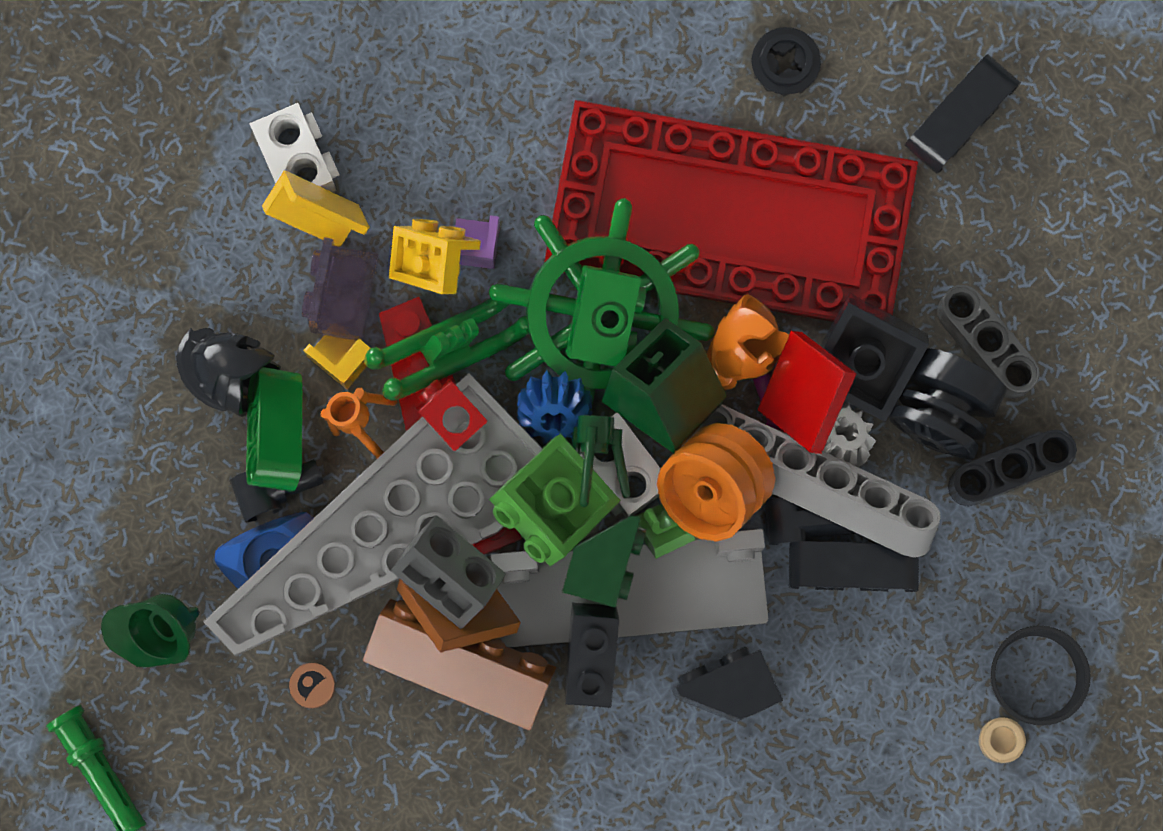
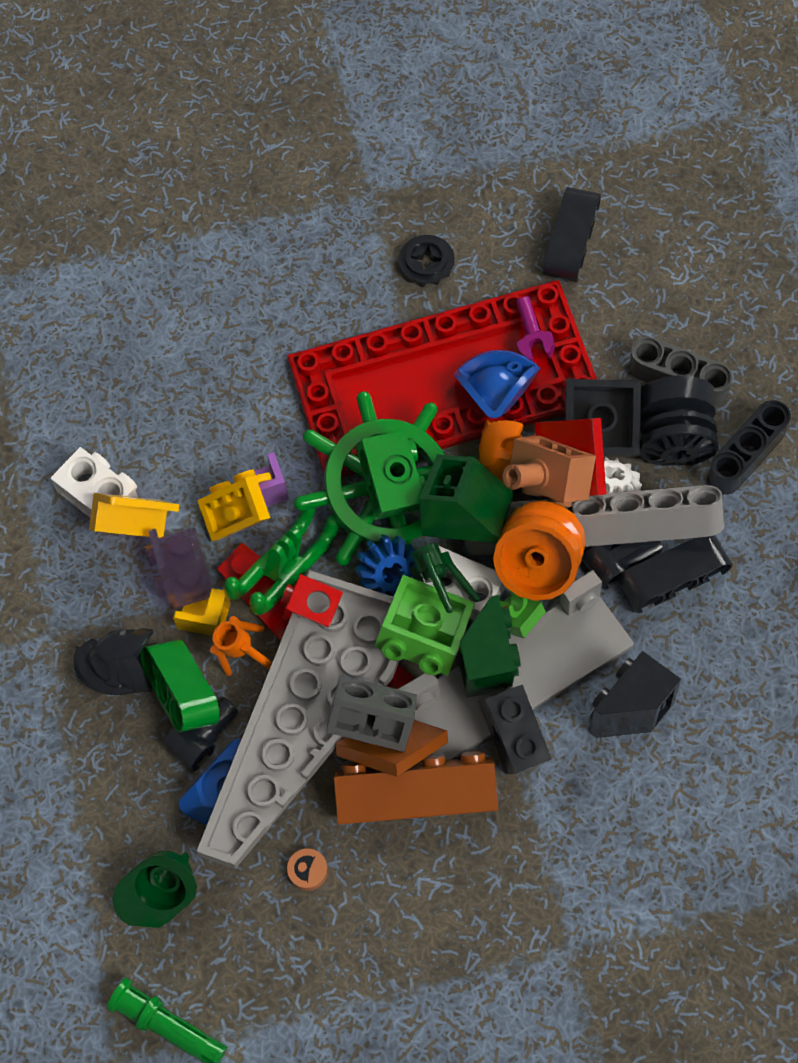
camera: 20 degrees left, 15 degrees down
(773, 396) = (550, 470): none -> nougat brick
(780, 252) = (496, 379): none -> blue hat
(852, 213) = (532, 332): none -> magenta bar

